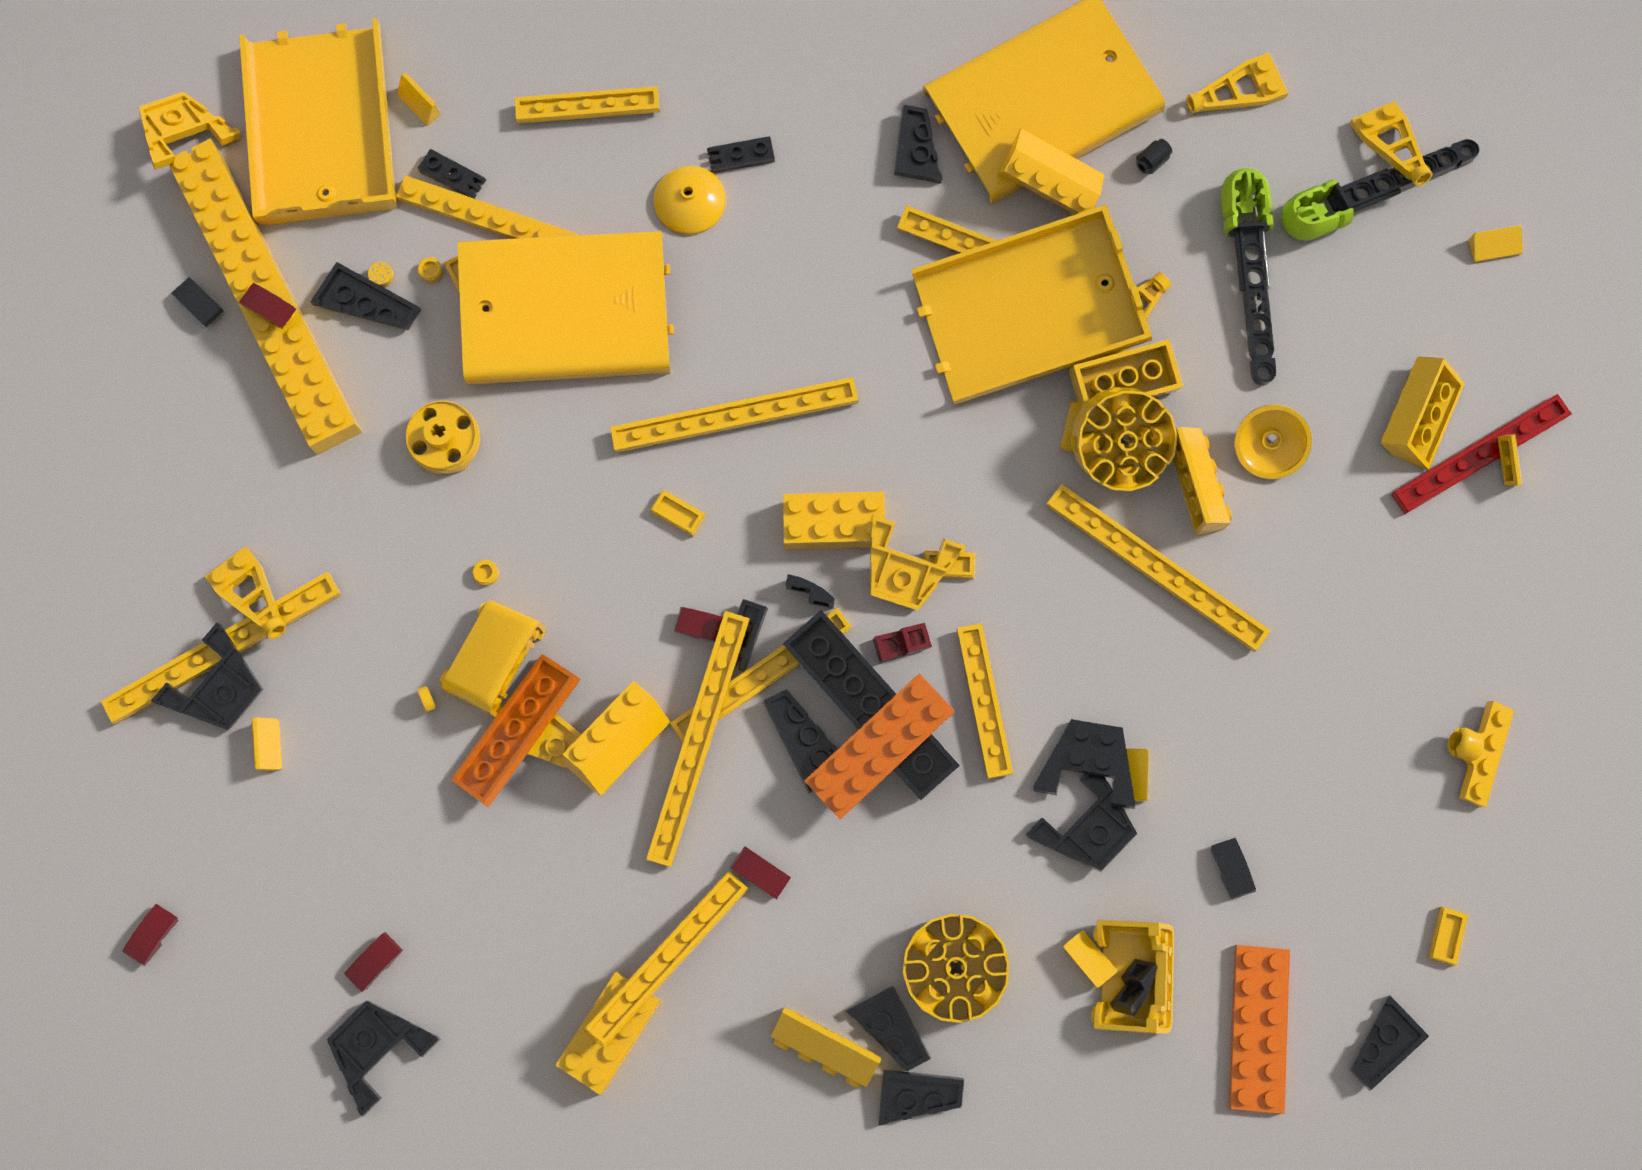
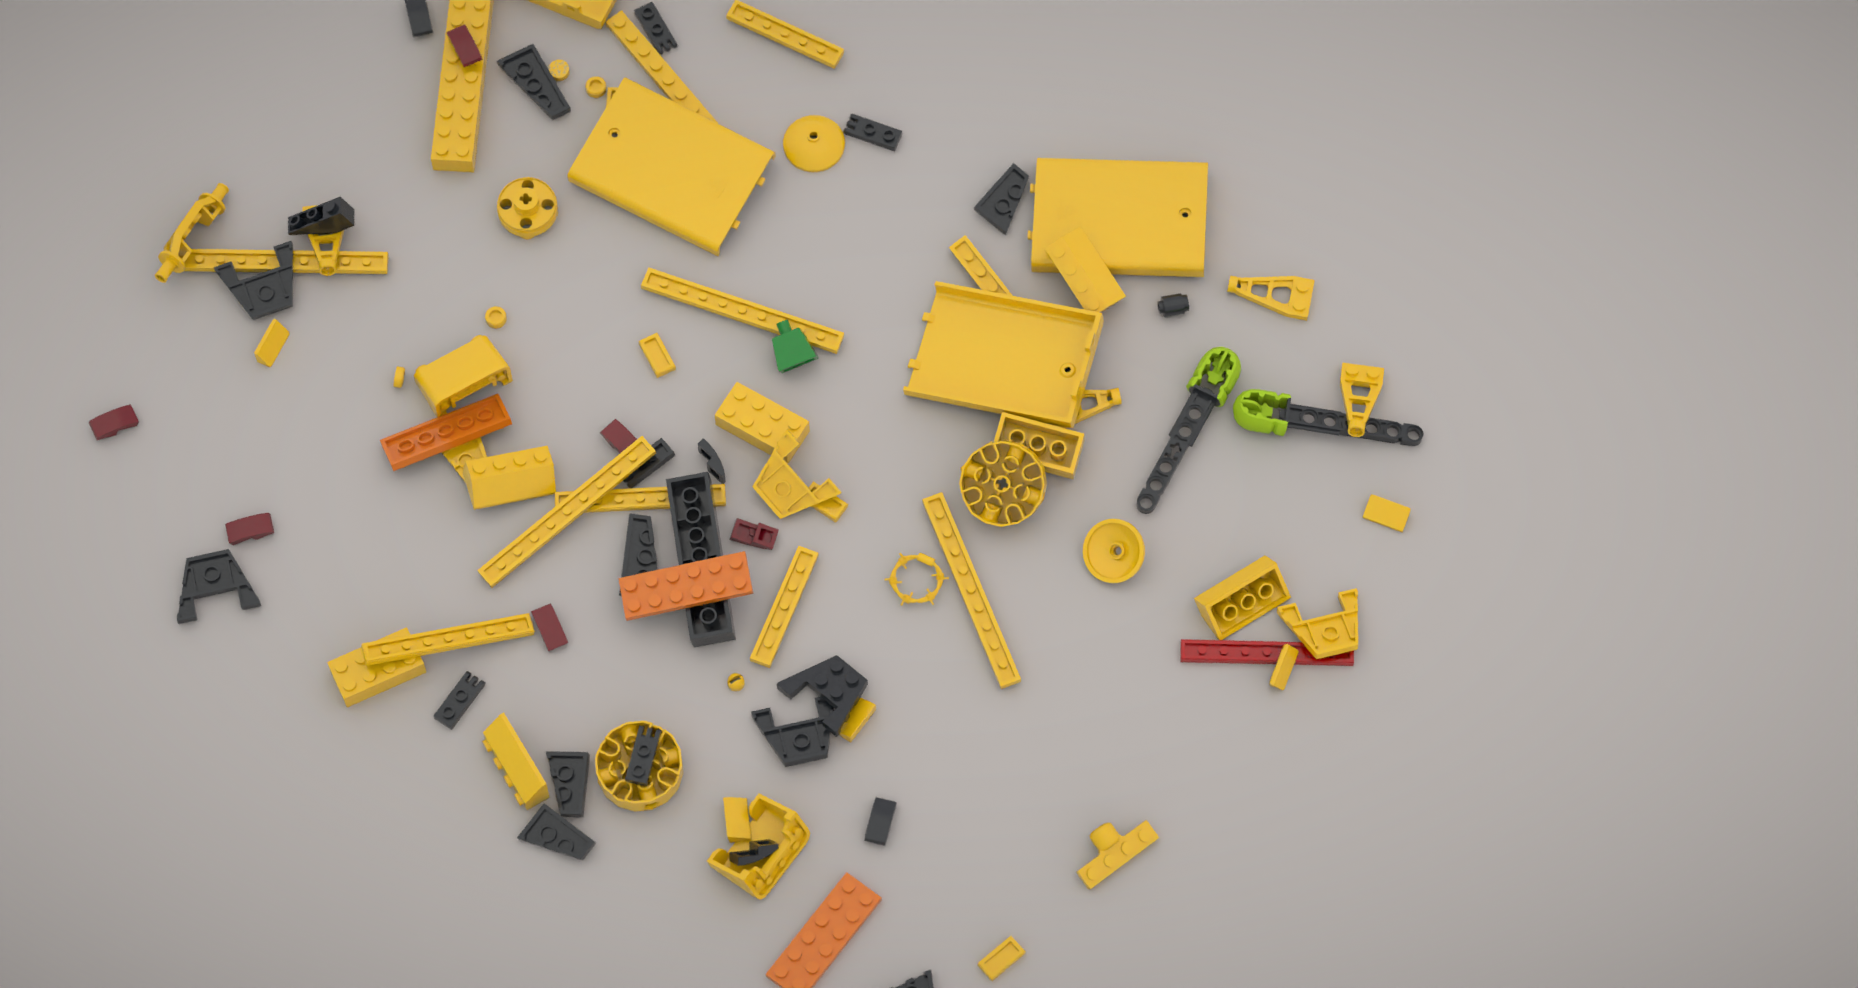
camera: 30 degrees right, 10 degrees down
(91, 700) = (176, 246): none -> yellow plate
(237, 576) = (324, 218): none -> black slope
(717, 1012) = (459, 700): none -> black hinge
(813, 424) = (792, 348): none -> green torso
(959, 960) = (642, 756): none -> black hinge
(982, 808) = (738, 684): none -> yellow hinge
(1096, 563) = (926, 560): none -> yellow piece
(1199, 482) = (1042, 546): yellow slope -> none
(1531, 400) = (1328, 633): none -> yellow wing

